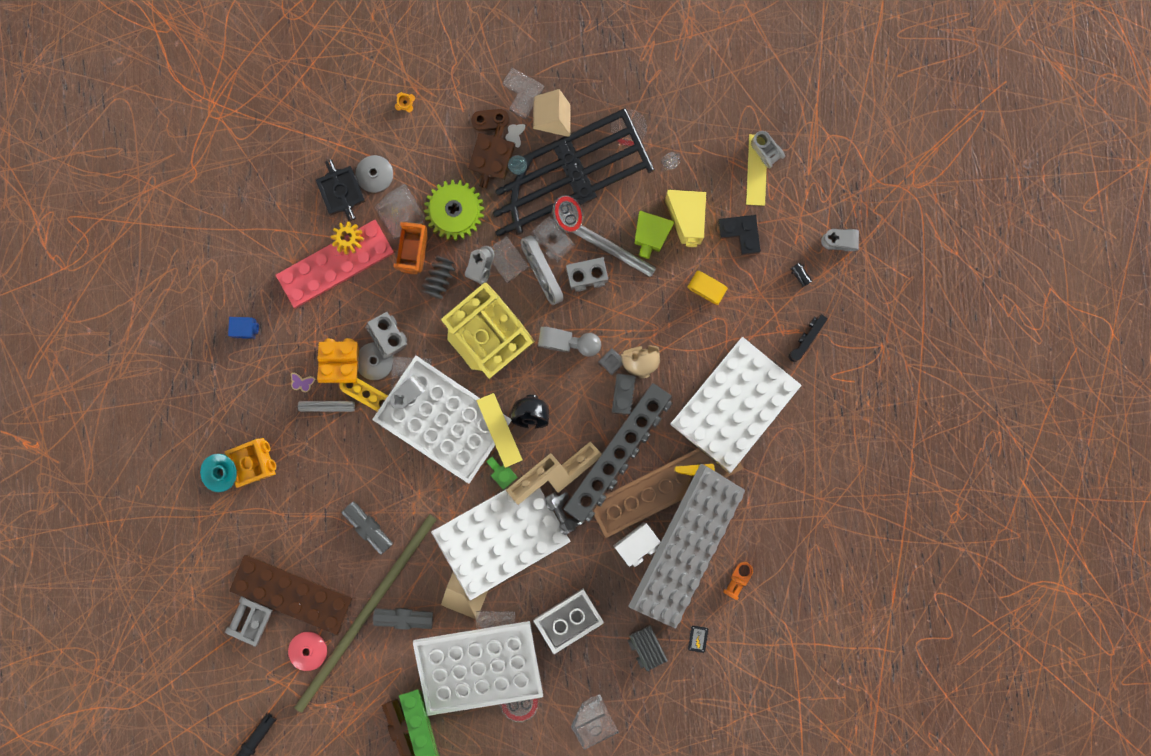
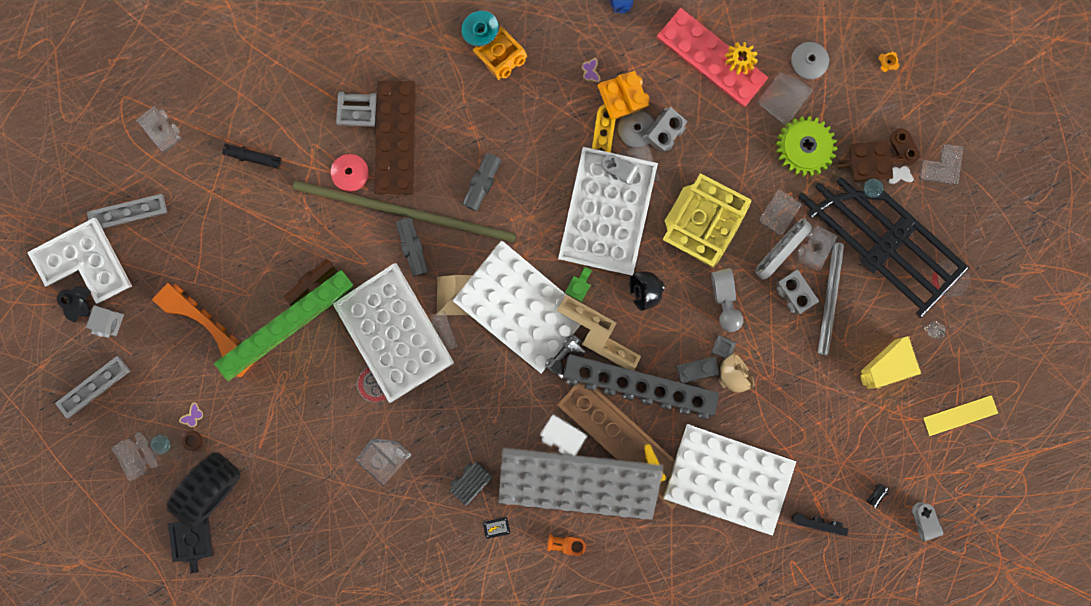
camera: 70 degrees right, 0 degrees up
(326, 406) = (578, 101): light grey axle -> none
(340, 190) = (782, 35): black plate -> none
(411, 248) = (755, 121): orange piece -> none
(438, 277) = (738, 156): dark grey piece -> none
(480, 264) = (765, 189): light grey piece -> none
(499, 430) = (618, 267): light yellow sticker -> none
(552, 113) = (935, 201): tan slope -> none
(567, 214) = (846, 252): piece -> none
(568, 621) = (467, 399): white brick -> none
(651, 233) = (859, 338): lime torso -> none
(707, 287) = (829, 410): yellow beam -> none
(743, 227) = (899, 424): black plate -> none
(767, 150) = (983, 418): light grey piece -> none

